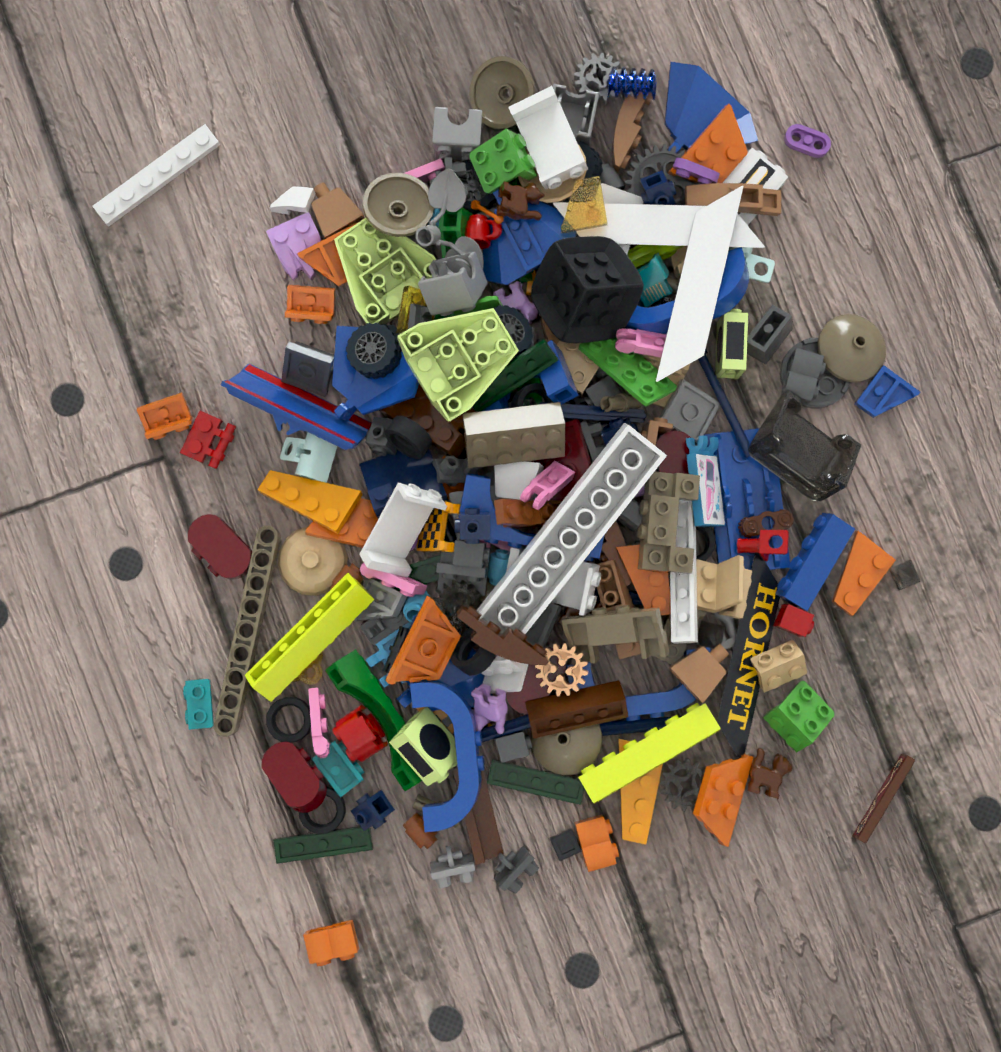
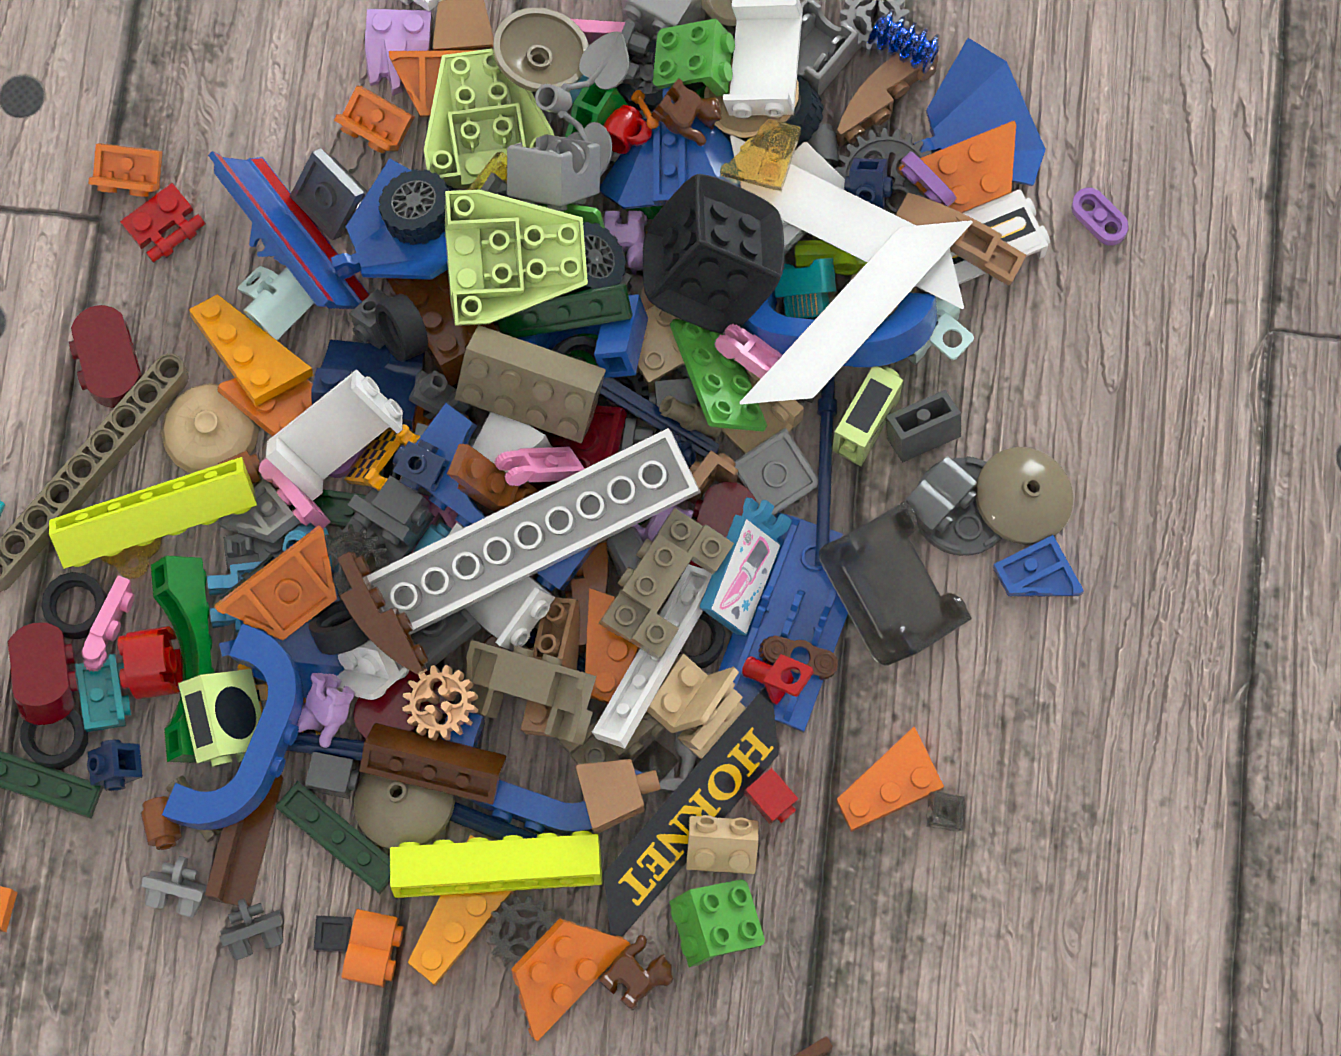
camera: 30 degrees right, 10 degrees down
(814, 561) = (835, 734): blue brick -> none

